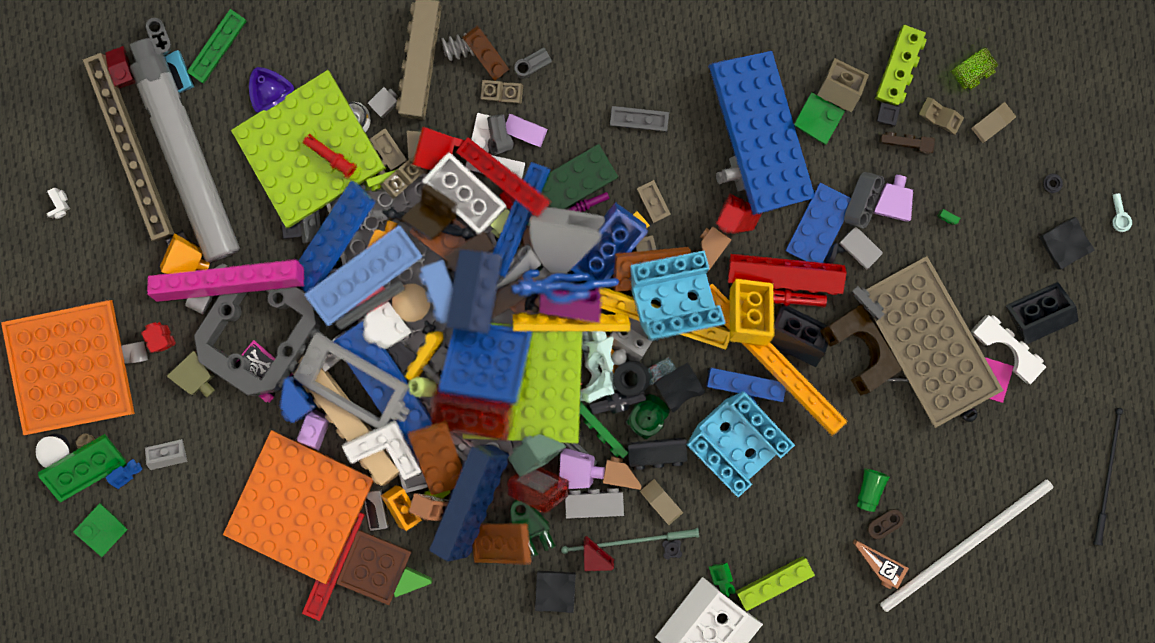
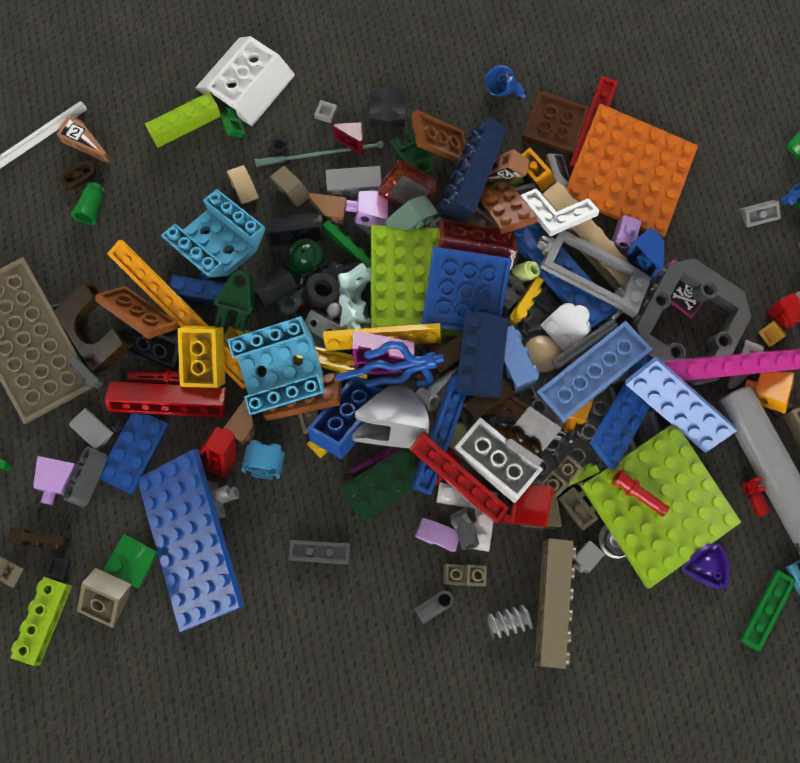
camera: 175 degrees right, 15 degrees down
(173, 318) = (772, 333): none -> yellow plate
(193, 376) = (748, 279): olive torso -> none
(215, 162) = (753, 488): none -> red bar
(281, 240) = (680, 404): none -> plate
(411, 581) = (519, 111): bright green slope -> none
(429, 614) = (502, 82): none -> blue hair
(485, 53) = (485, 613): reddish brown plate -> none
(622, 589) = (325, 111): none -> light grey plate
(653, 201) = (303, 467): dark tan plate -> none
(691, 207) = (263, 460): none -> dark azure brick
(711, 505) = (242, 184): none -> tan slope
(715, 366) = (237, 298): none -> dark green piece
(817, 361) = (136, 312): none -> dark orange plate

